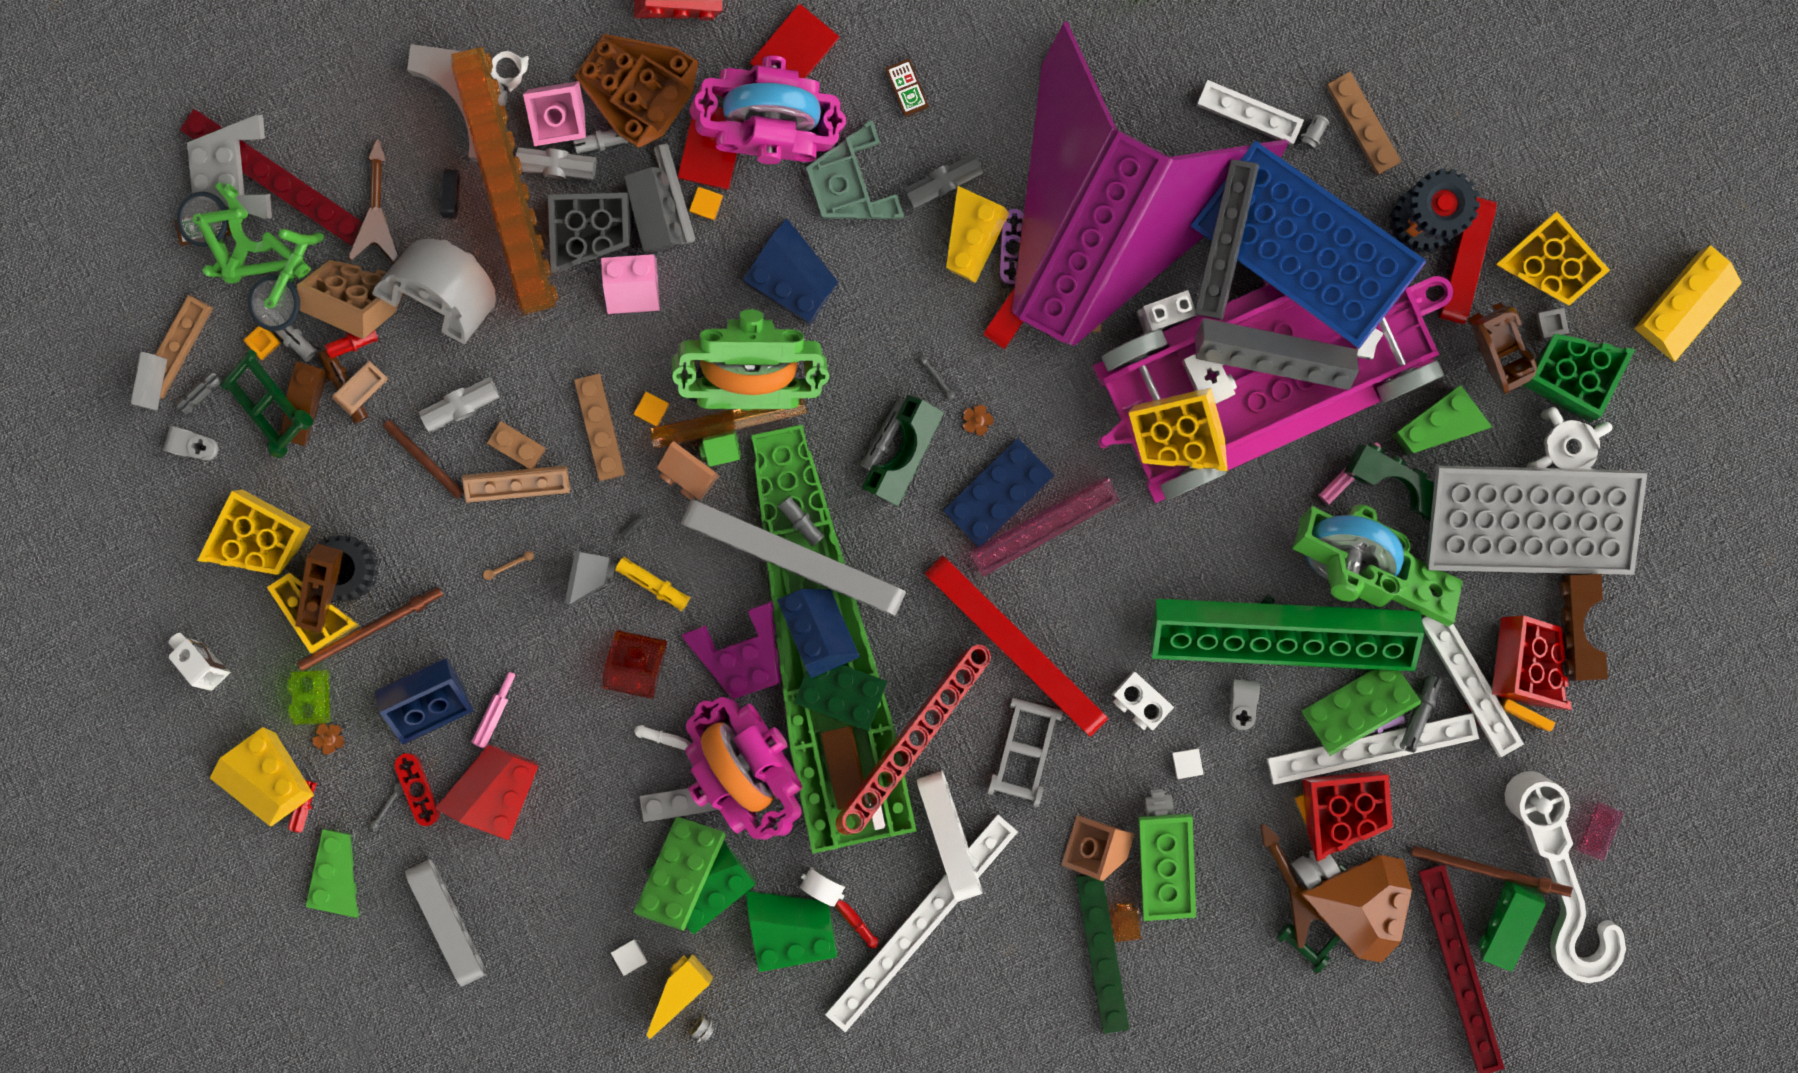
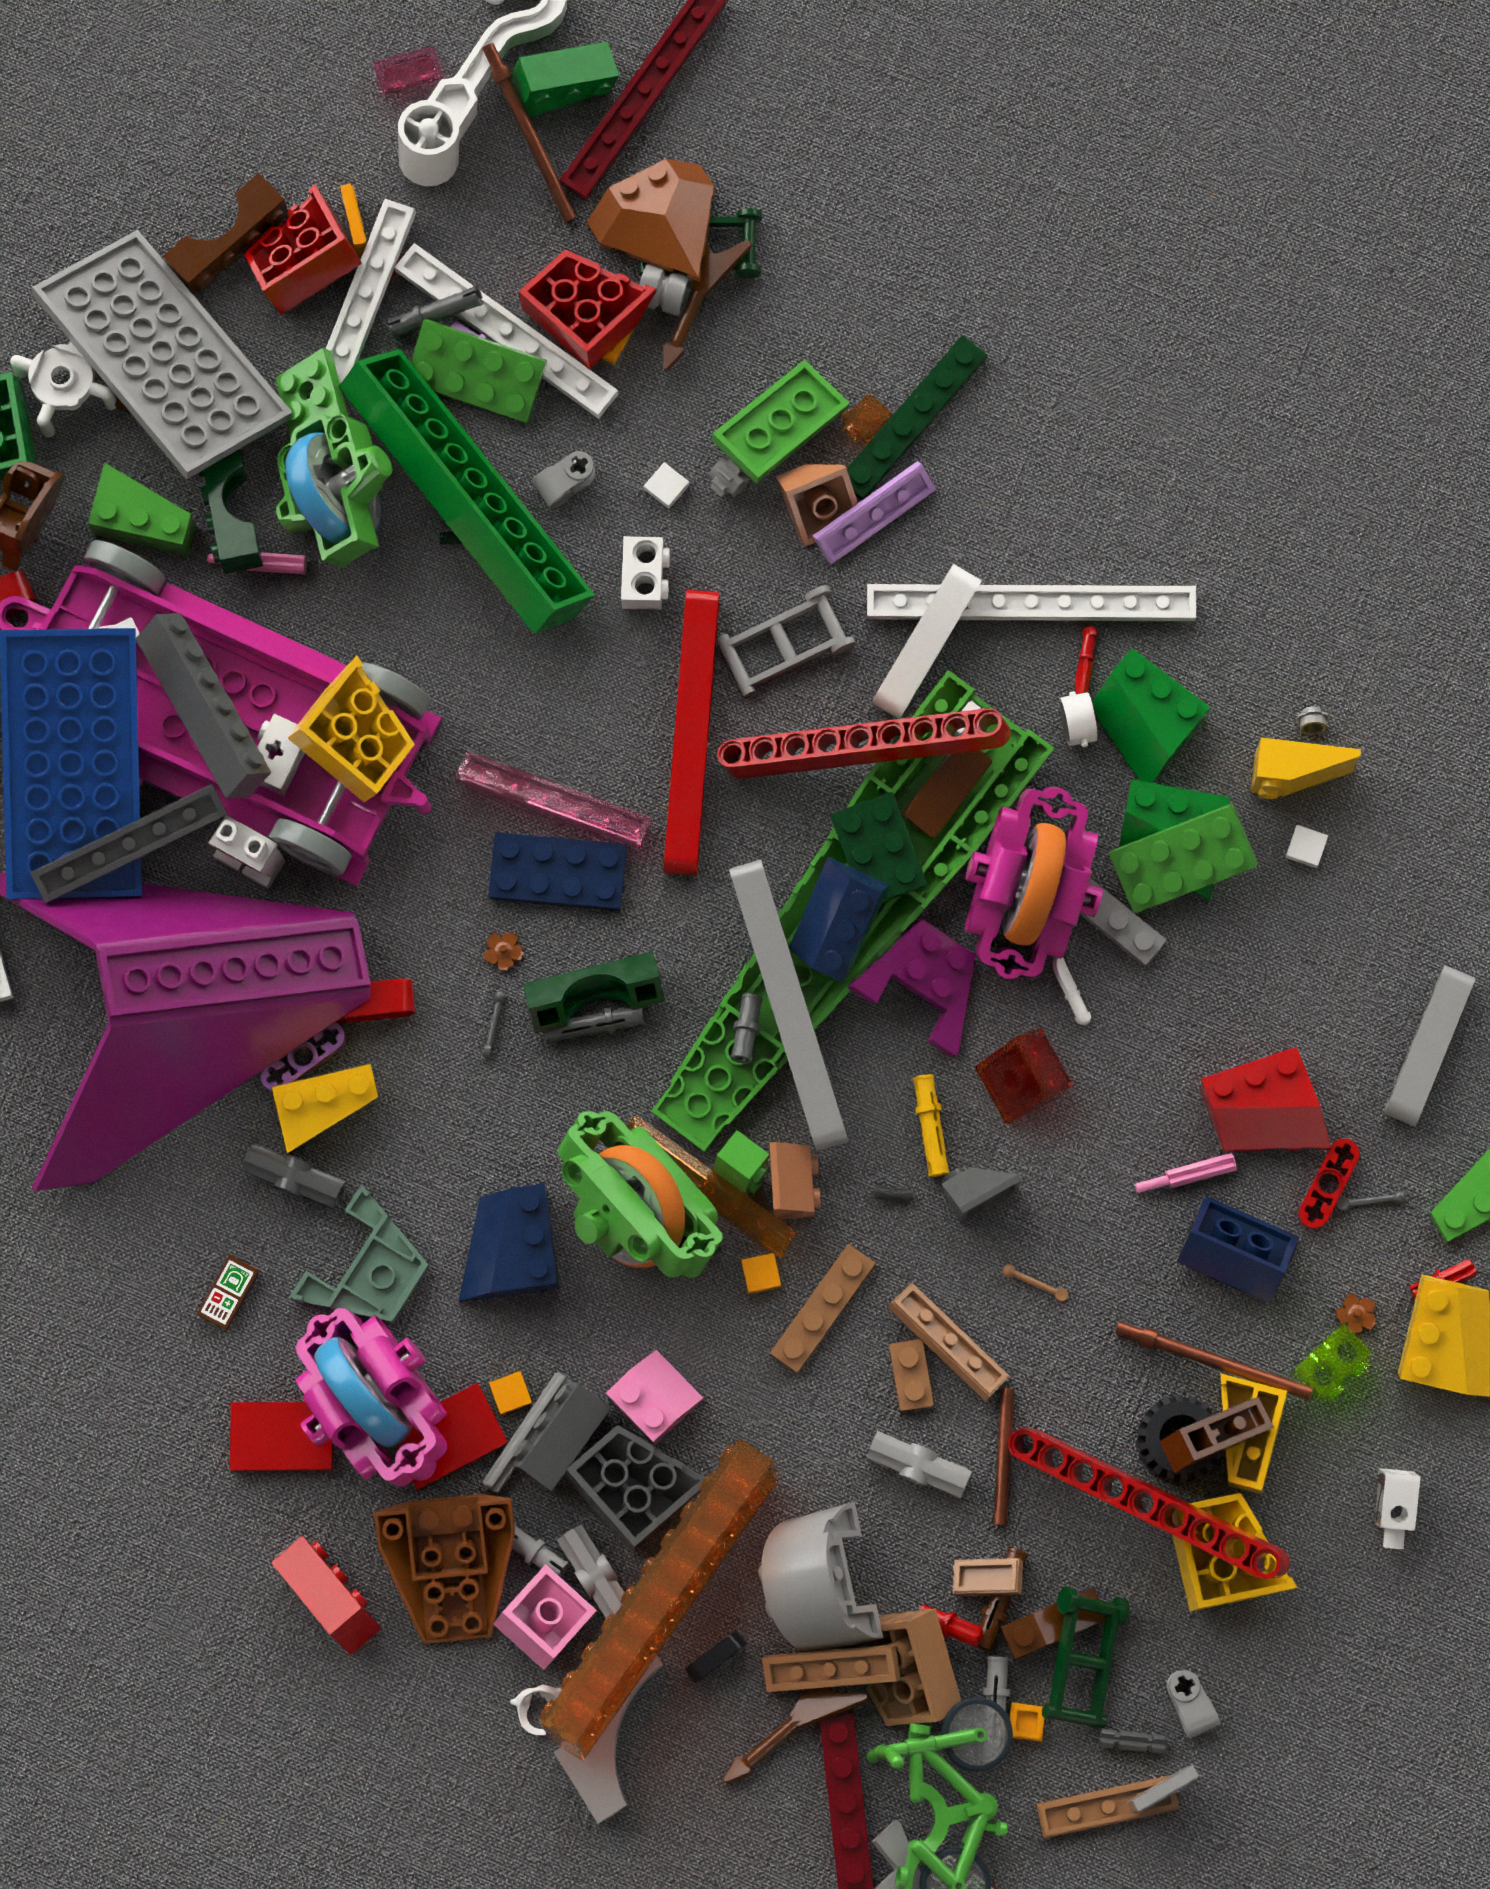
camera: 125 degrees left, 10 degrees down
(306, 523) = (1163, 1507): none -> red beam
(383, 251) = (831, 1668): none -> medium nougat plate
(1060, 876) = (874, 512): none -> lavender tile

